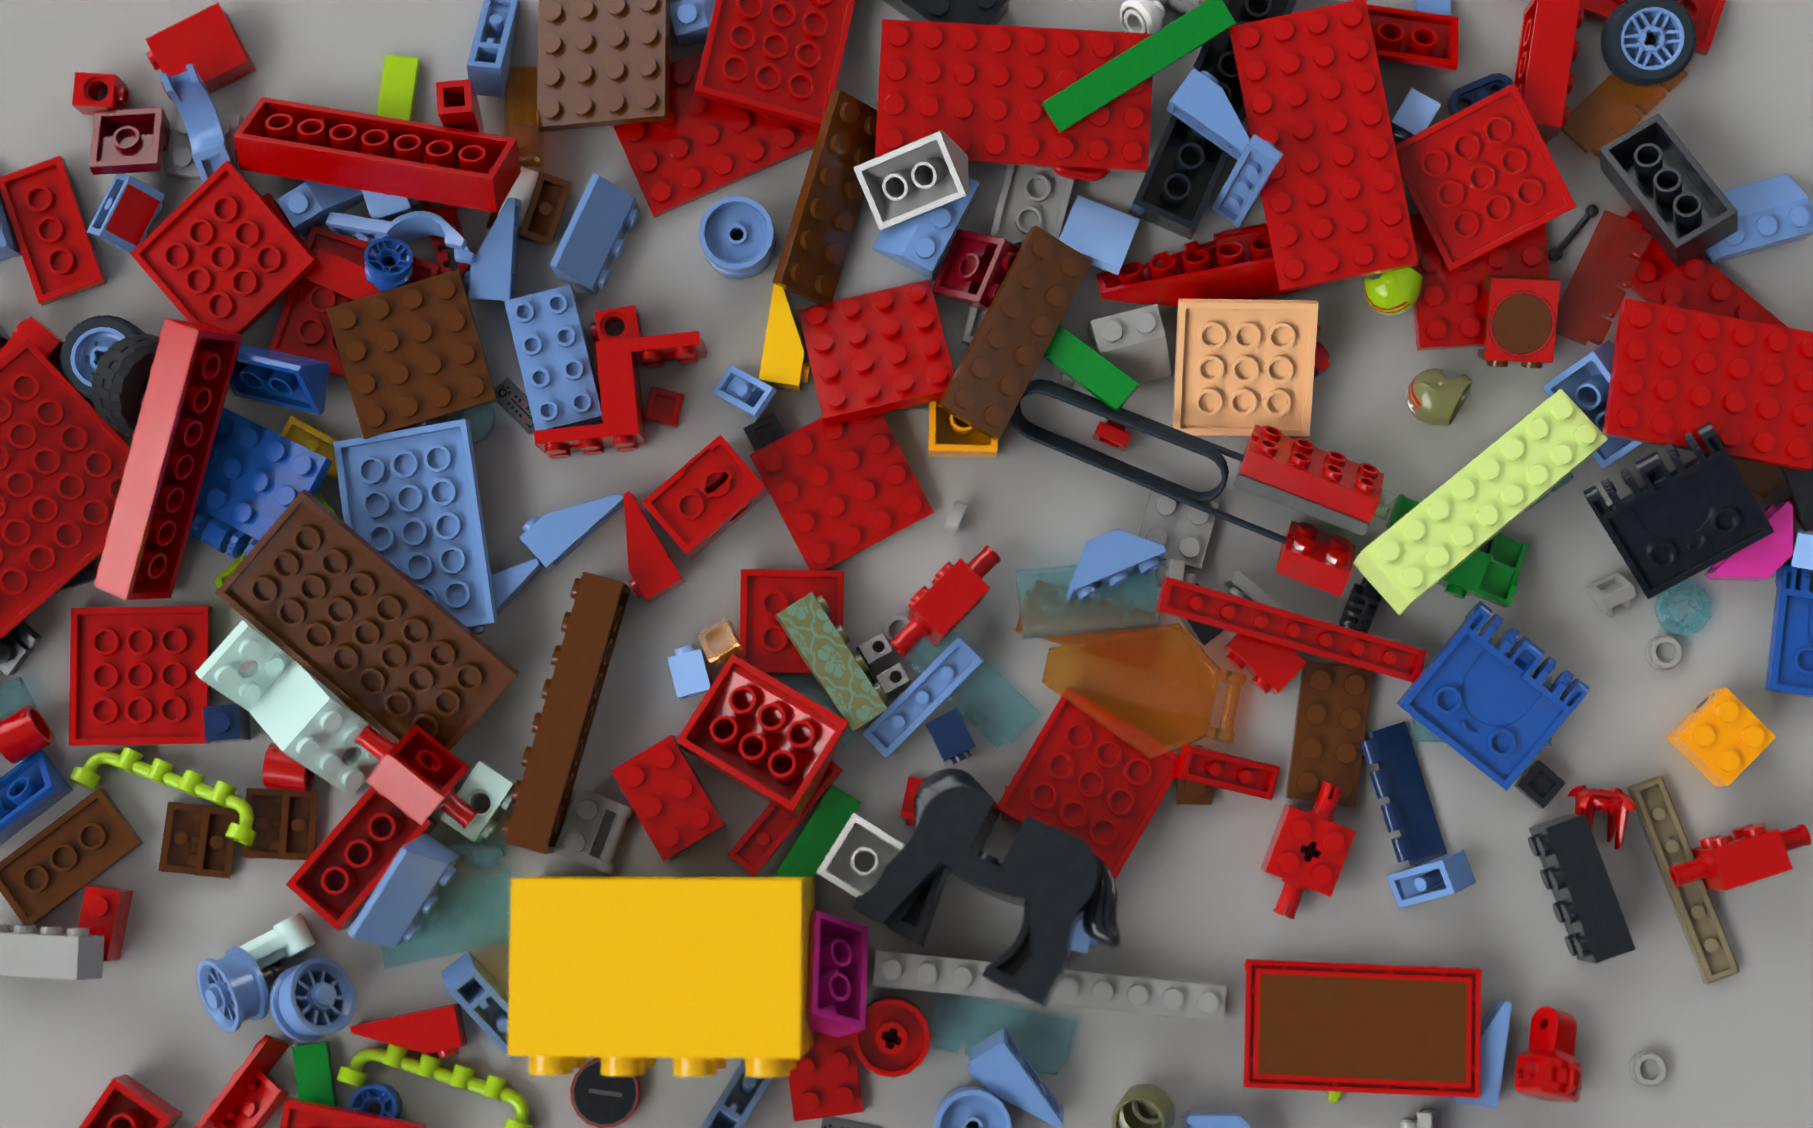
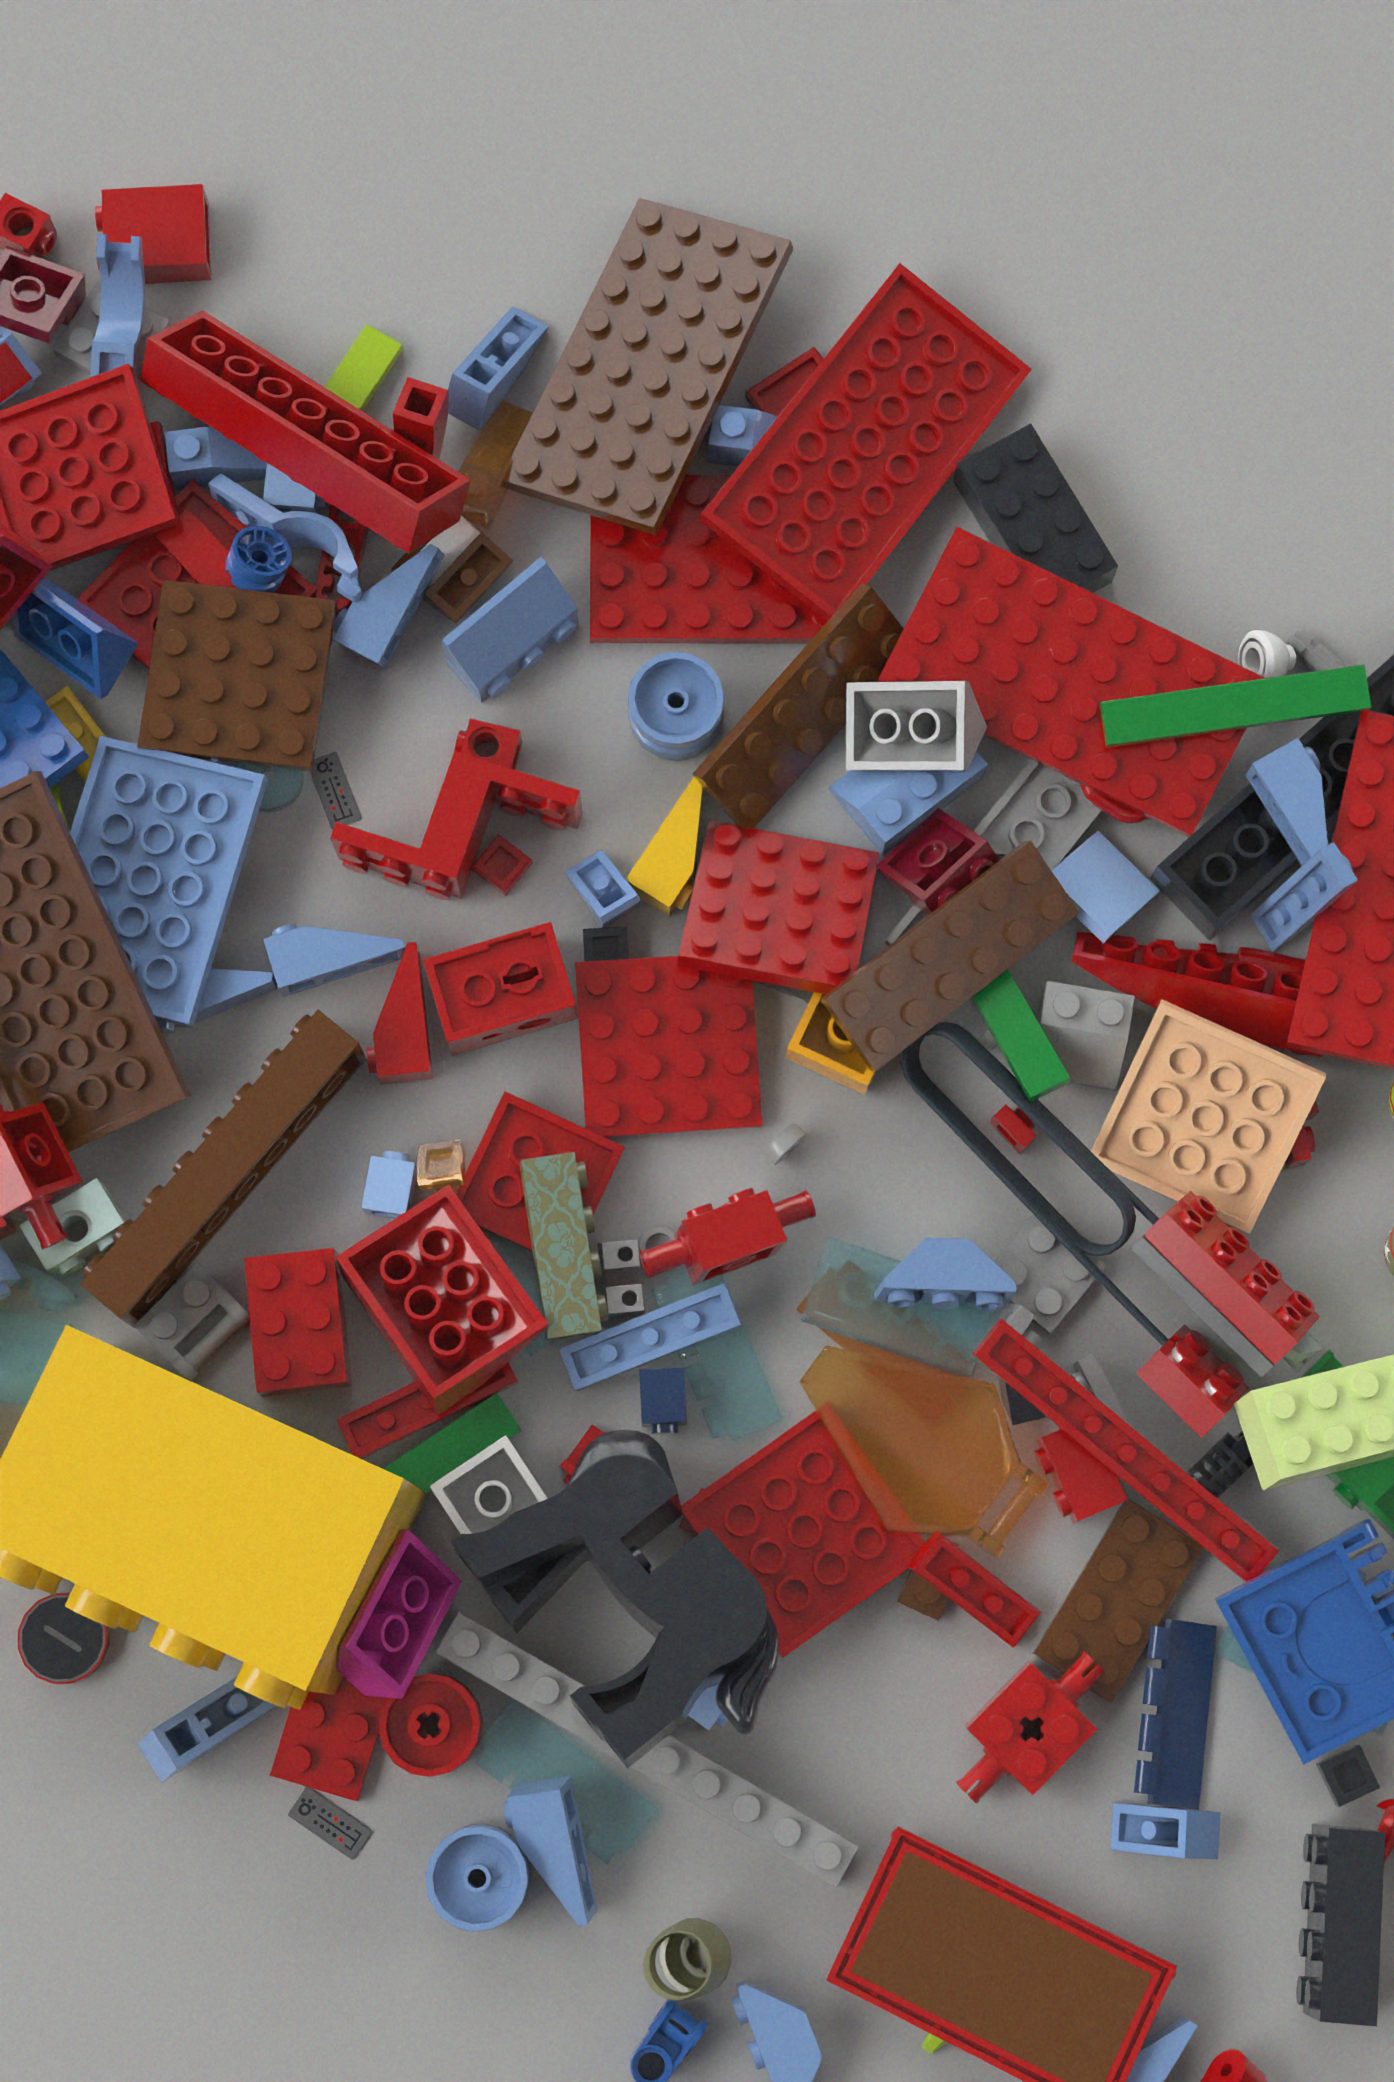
camera: 20 degrees right, 5 degrees down
(555, 359) = (400, 751): medium blue brick -> none

